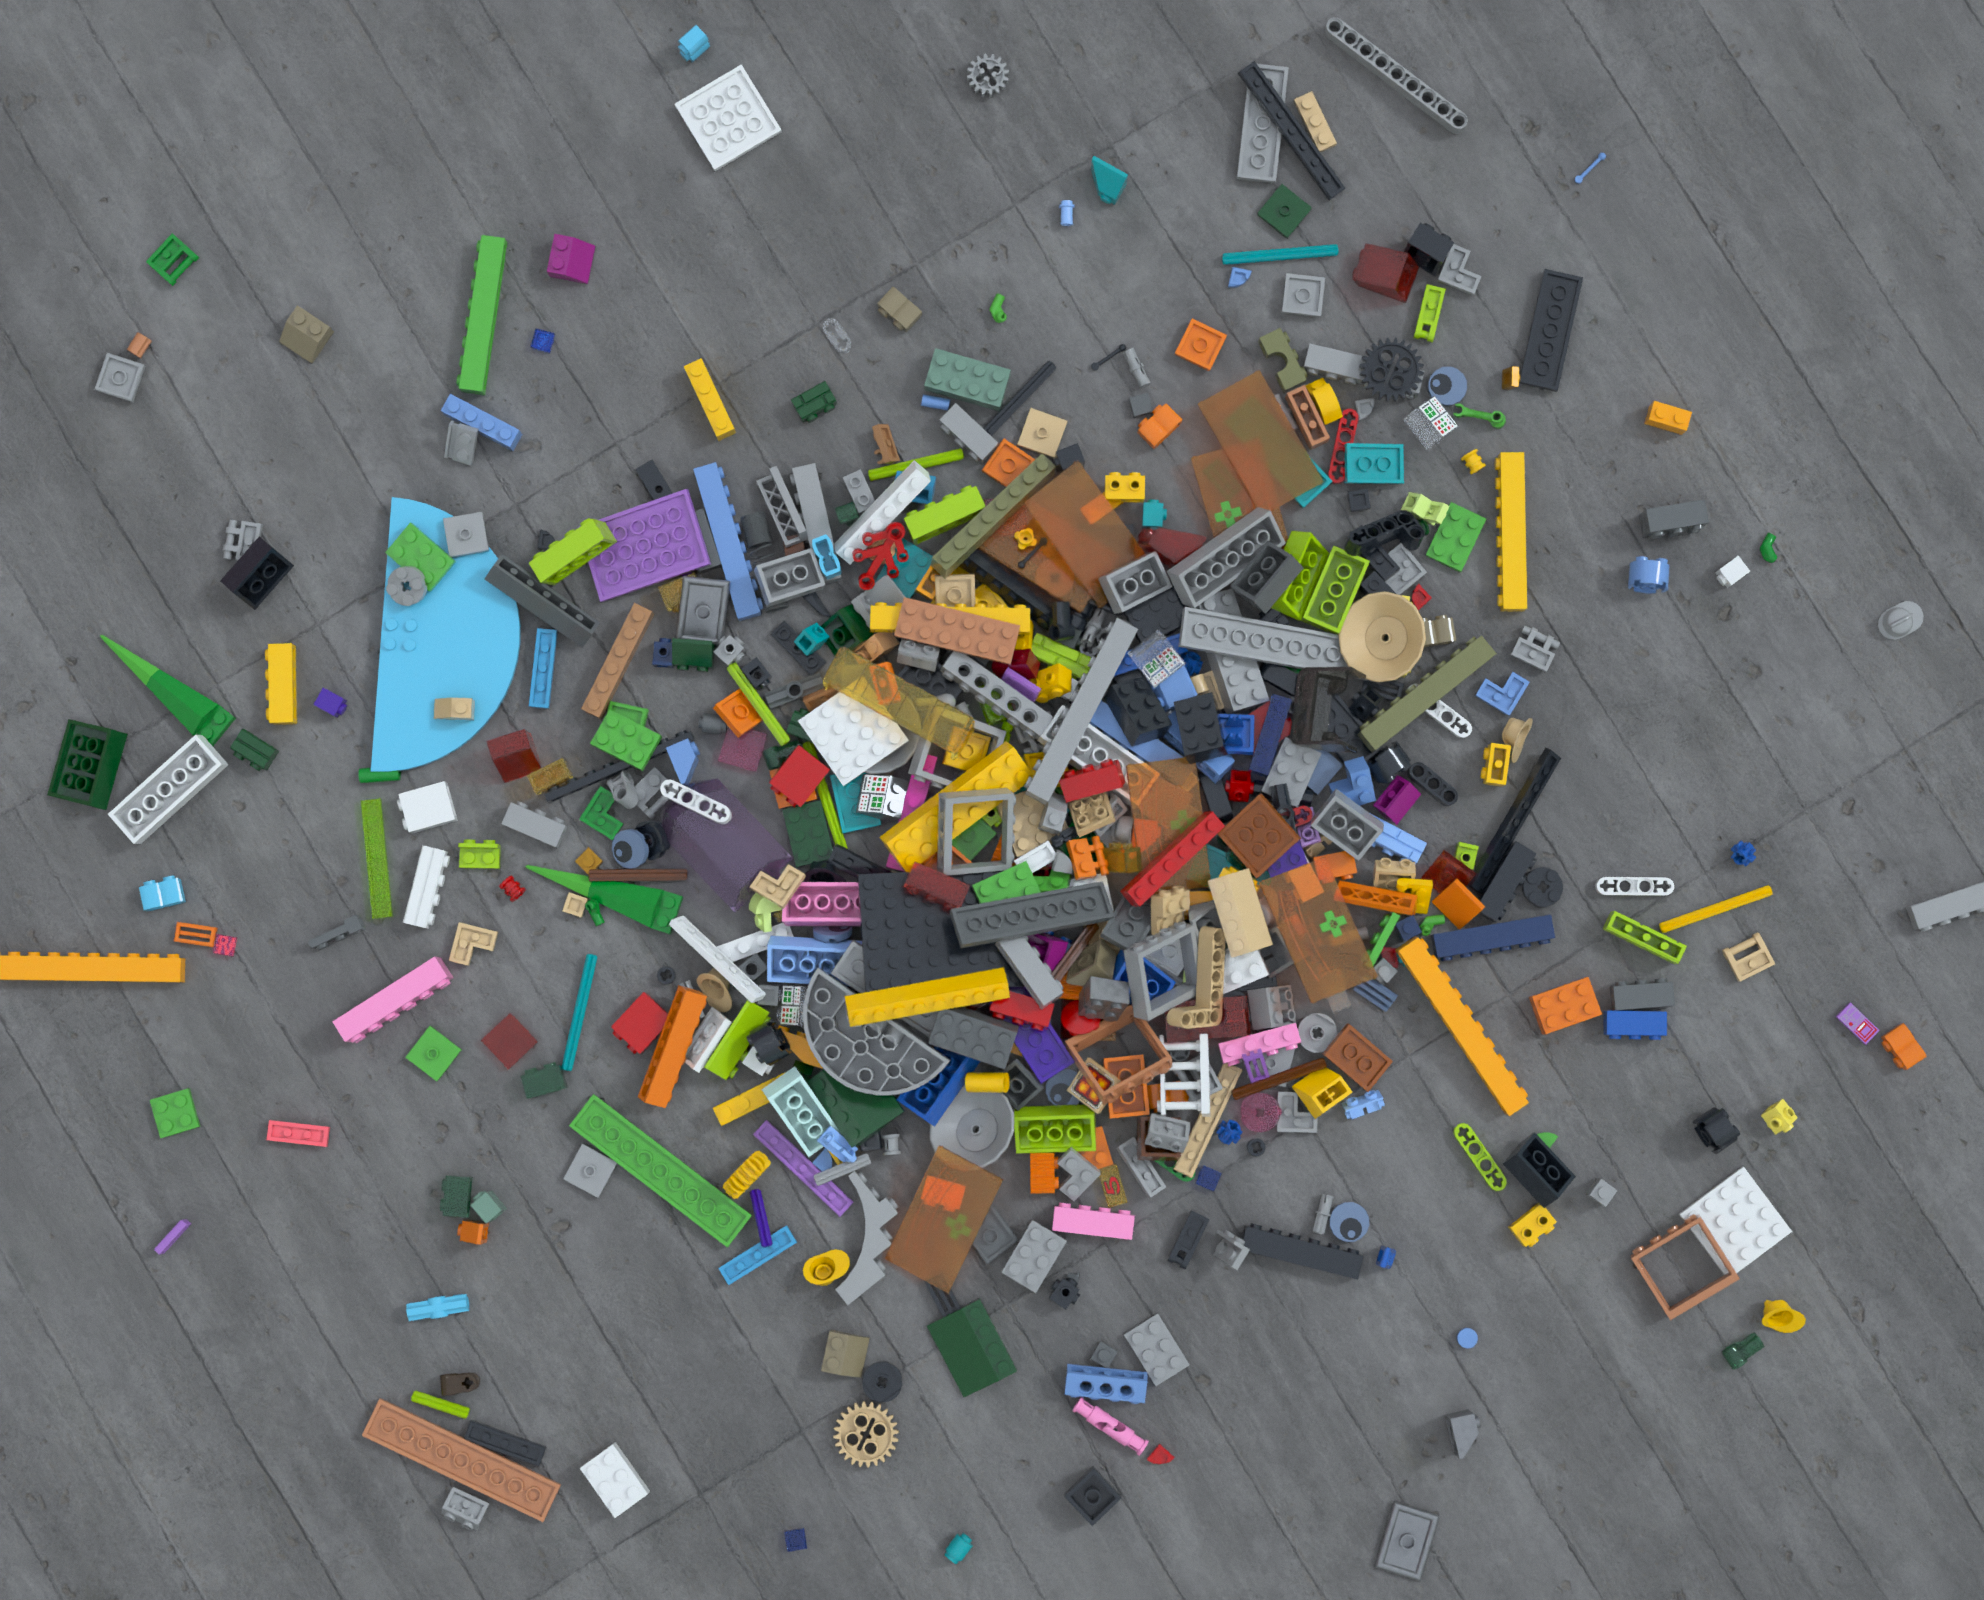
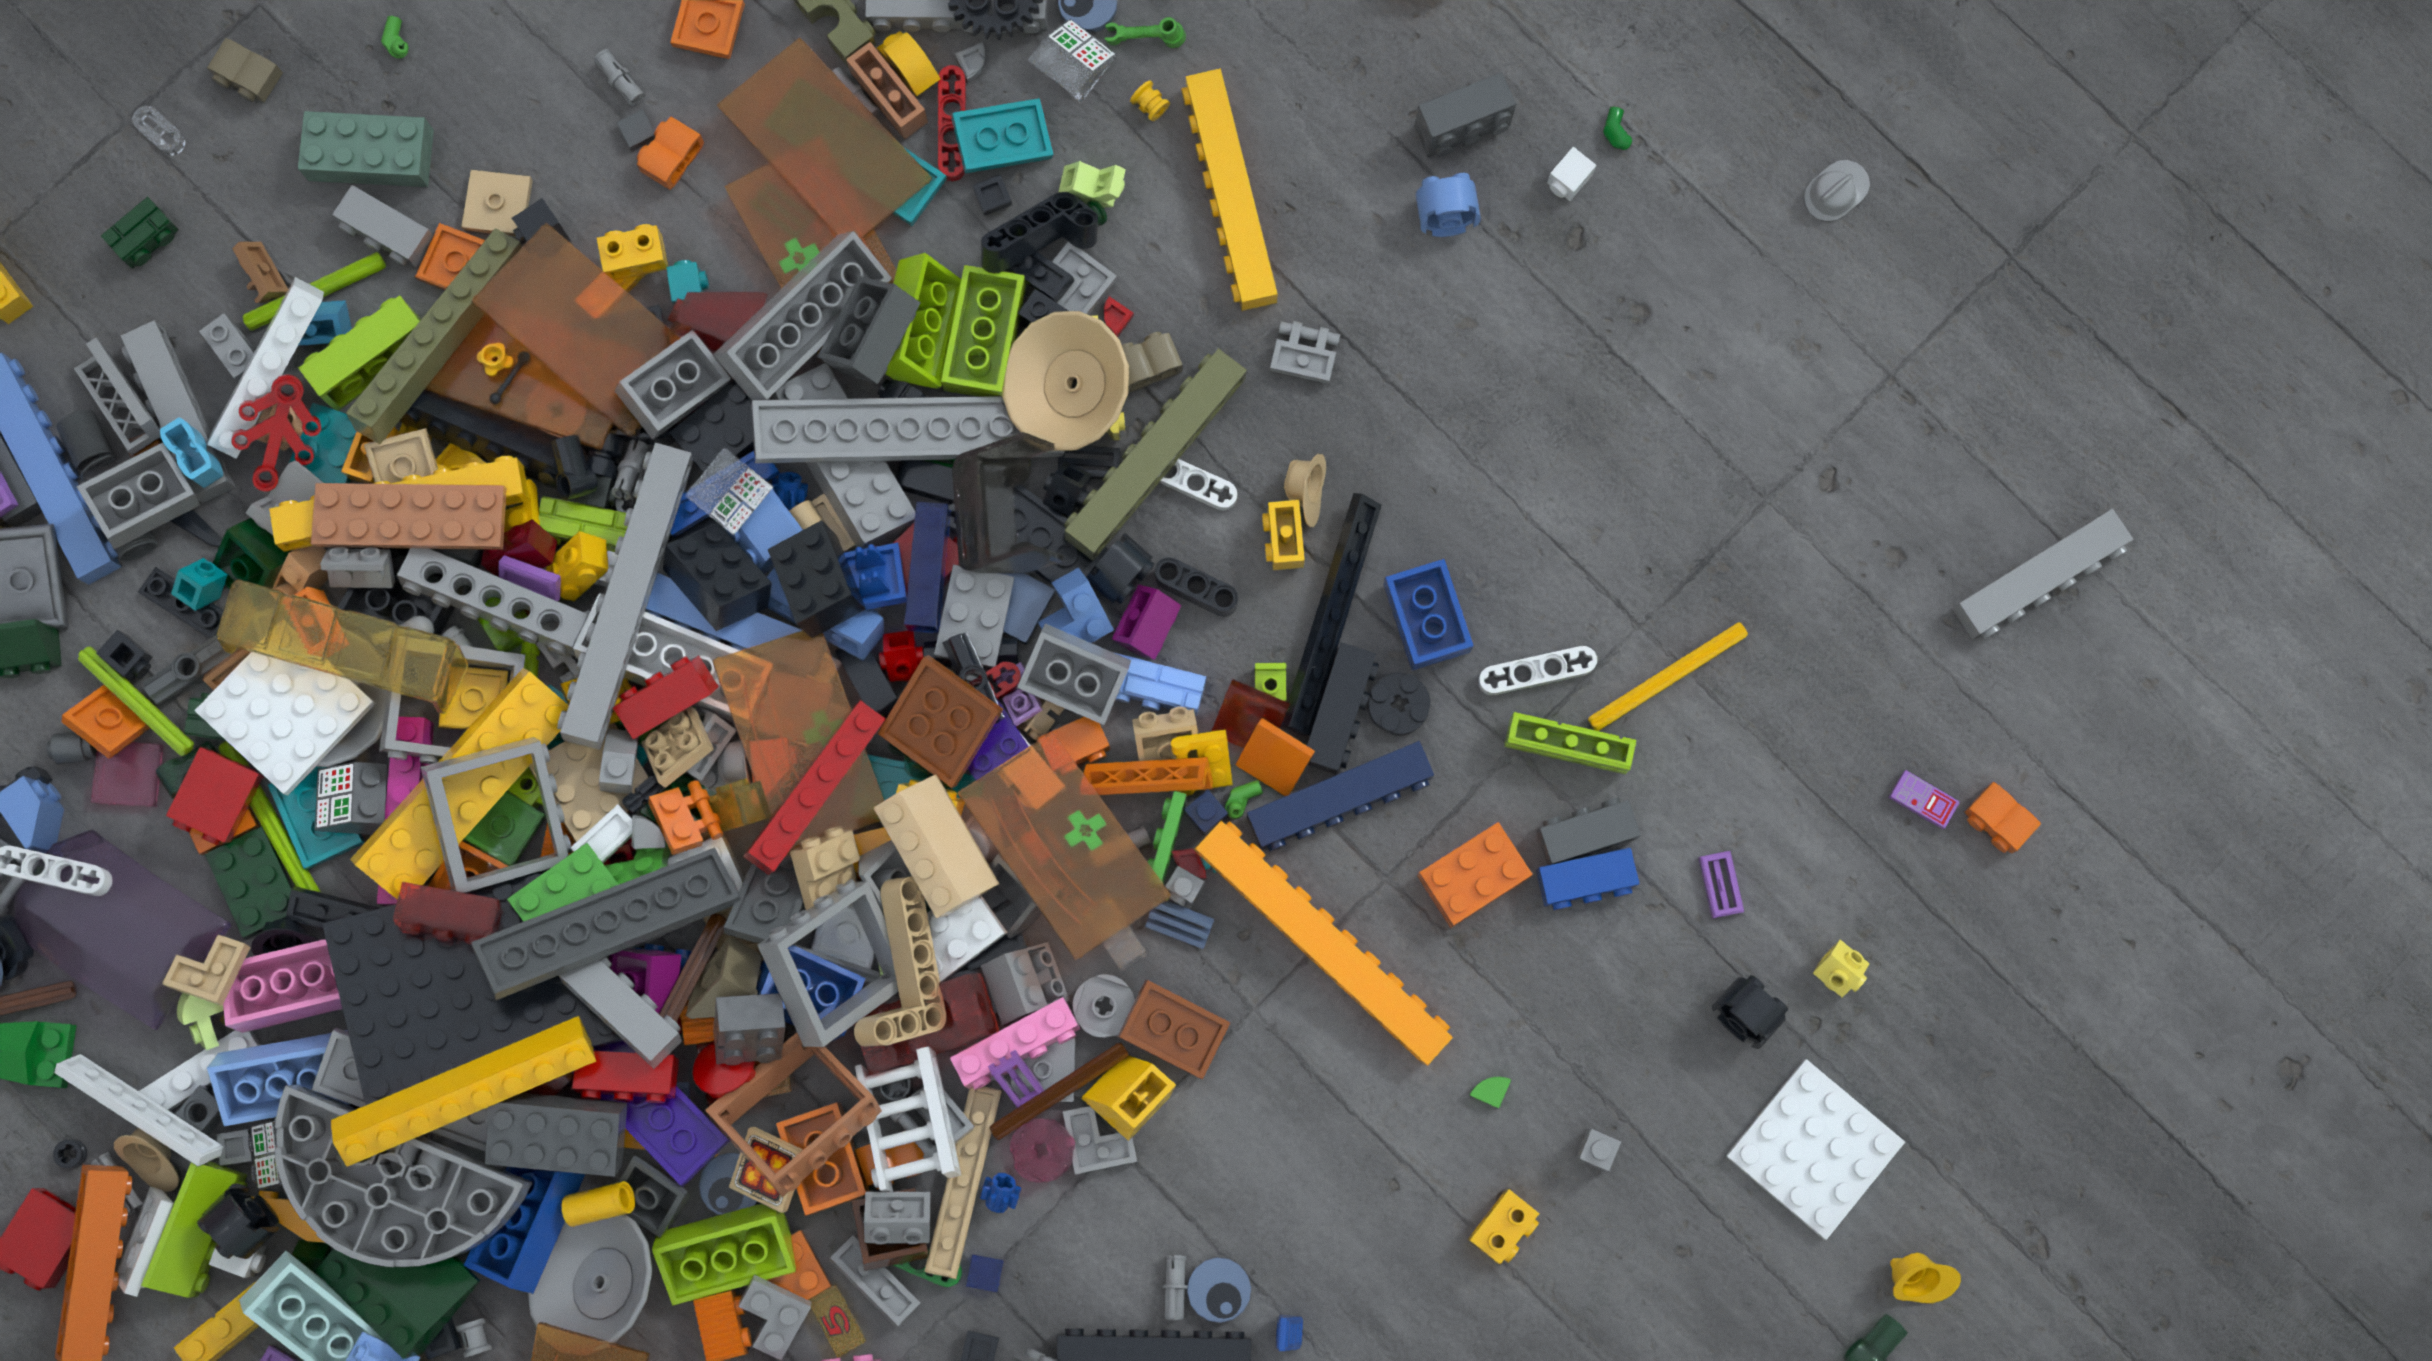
camera: 15 degrees left, 5 degrees down
(730, 657) = (76, 629): light grey brick -> none
(839, 933) = (315, 1025): sand blue tile -> none
(847, 513) = (214, 383): clear green piece -> none
(935, 402) = (324, 193): medium blue axle -> none
(1020, 397) = (452, 159): black axle -> none
(1095, 366) = (558, 89): black hinge -> none
(1261, 1145) = (1057, 1202): black bush -> none
(1354, 1106) = (1186, 1105): light blue hinge -> none
(1455, 537) = (1149, 217): bright green plate -> none
(1481, 1155) = (1400, 1137): lime beam -> none
(1503, 698) = (1272, 436): medium blue plate -> none
(1539, 1170) = (1493, 1138): black brick -> none
(1574, 836) = (1428, 614): none -> blue brick
(1699, 1295) = (1789, 1275): nougat window -> none
(1716, 1047) = (1715, 912): none -> medium lavender tile
(1743, 853) = (1688, 583): blue gear -> none
(1751, 963) = (1742, 745): tan plate -> none

